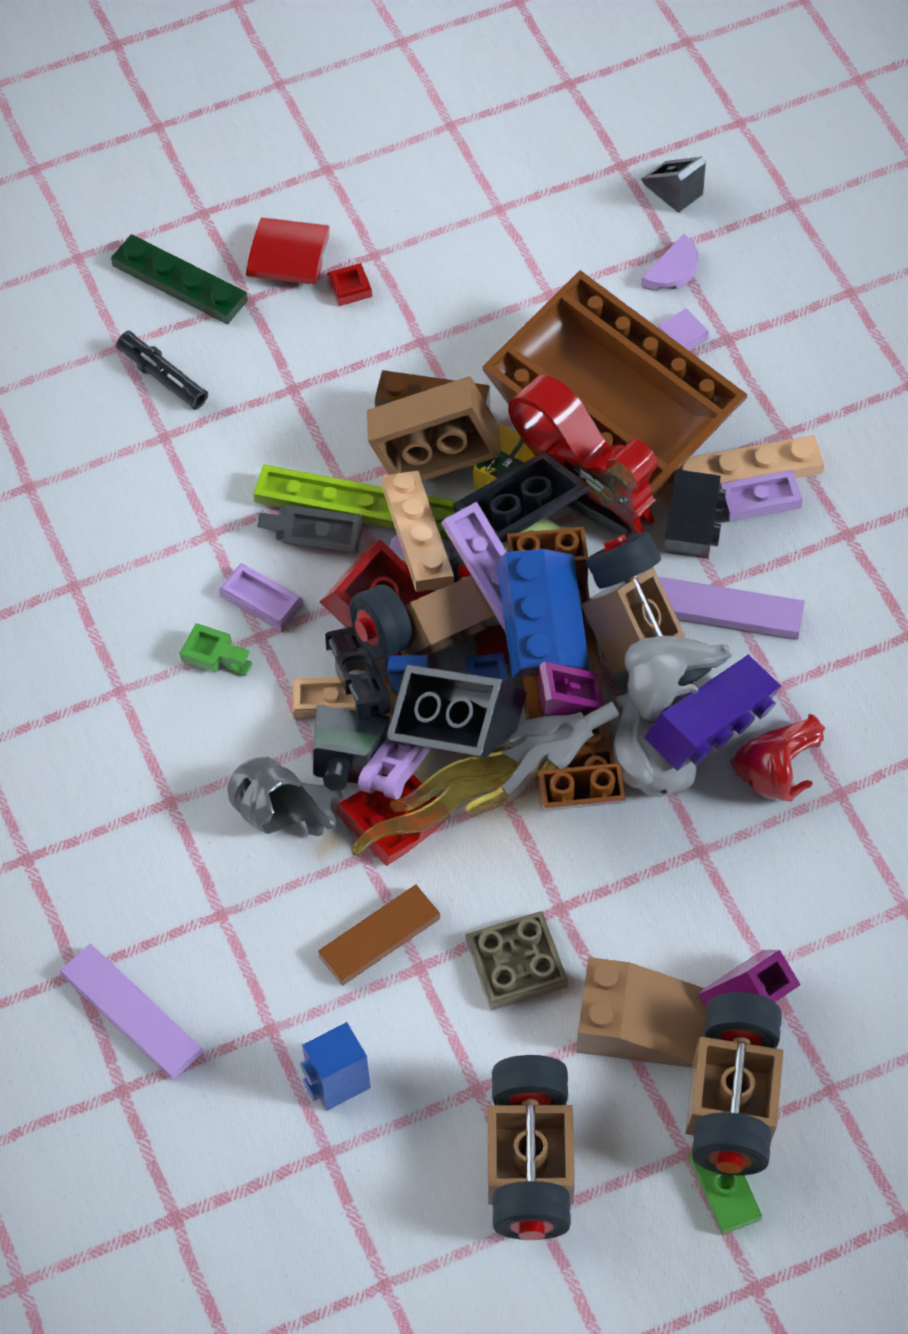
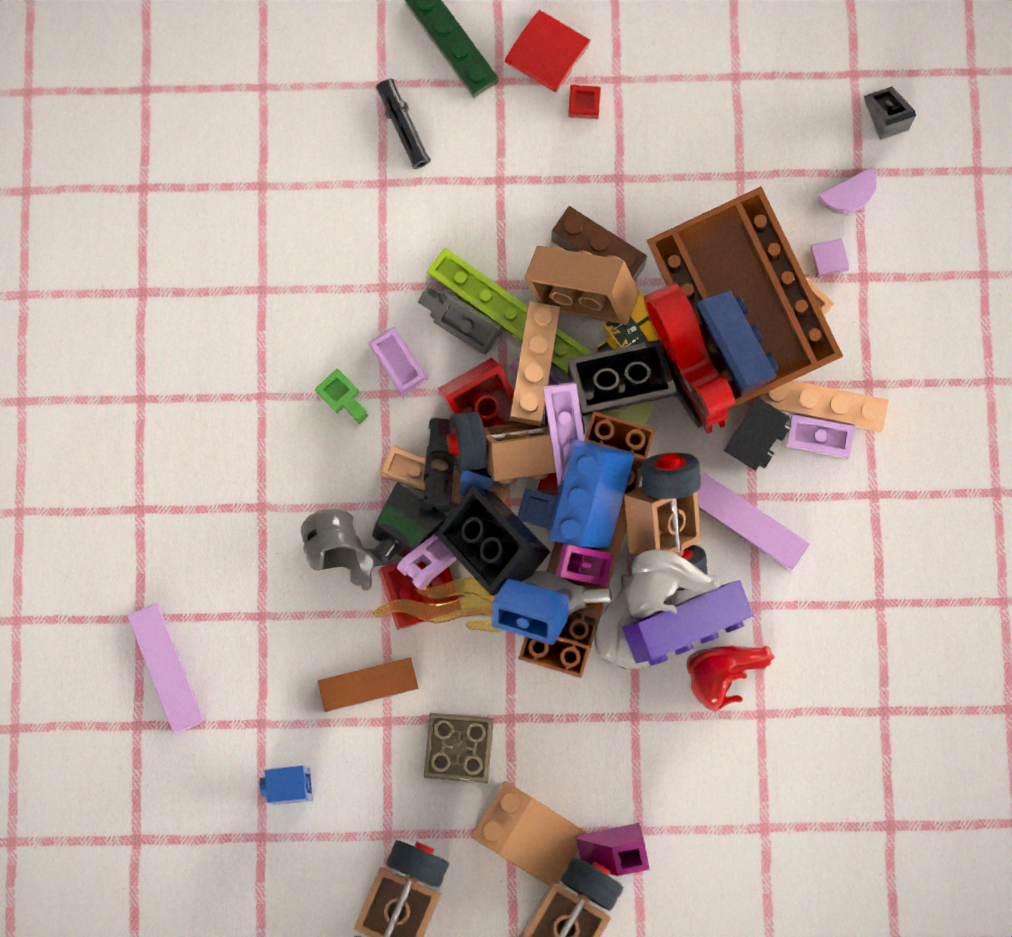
camera: 25 degrees right, 20 degrees up
(534, 749) = (530, 611): none -> blue brick
(627, 415) = (737, 342): none -> dark blue slope

